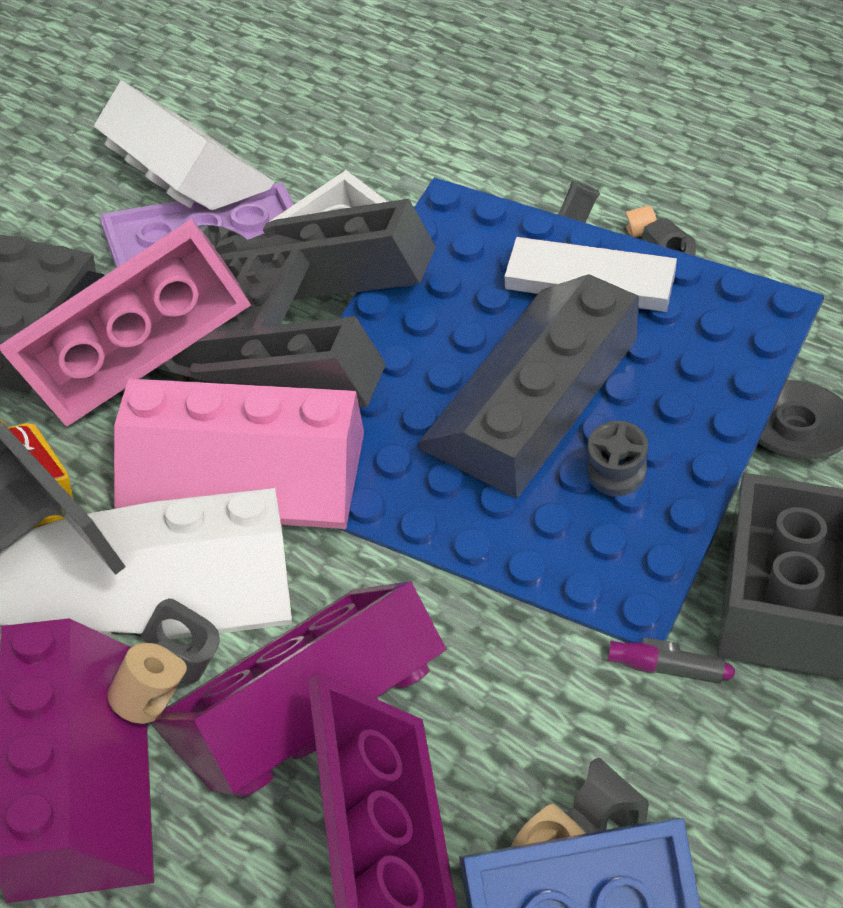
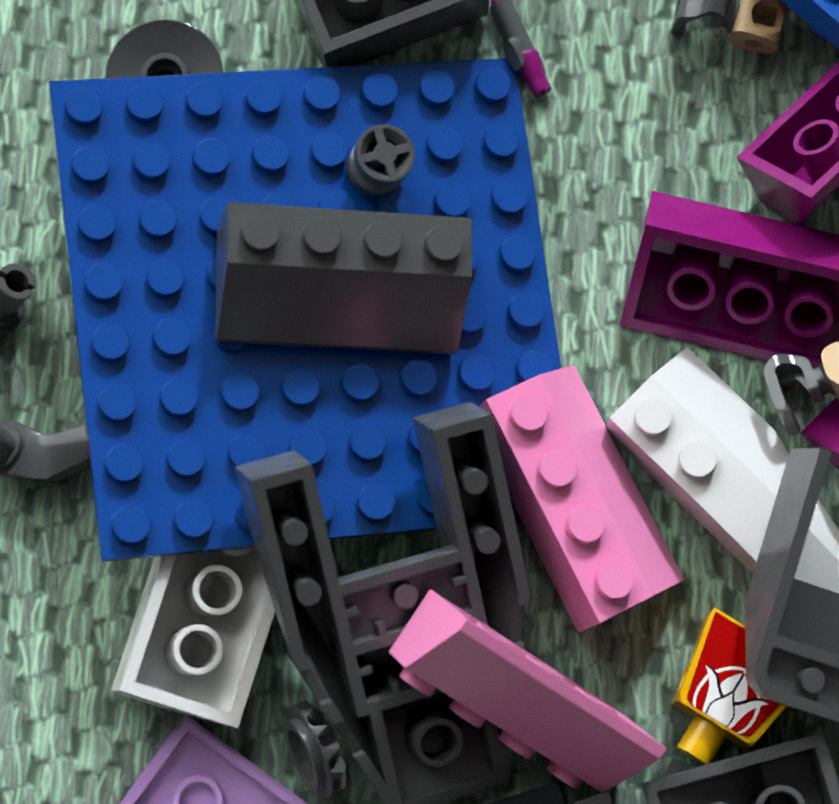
camera: 125 degrees left, 35 degrees up
(546, 263) = (171, 300): white tile -> none

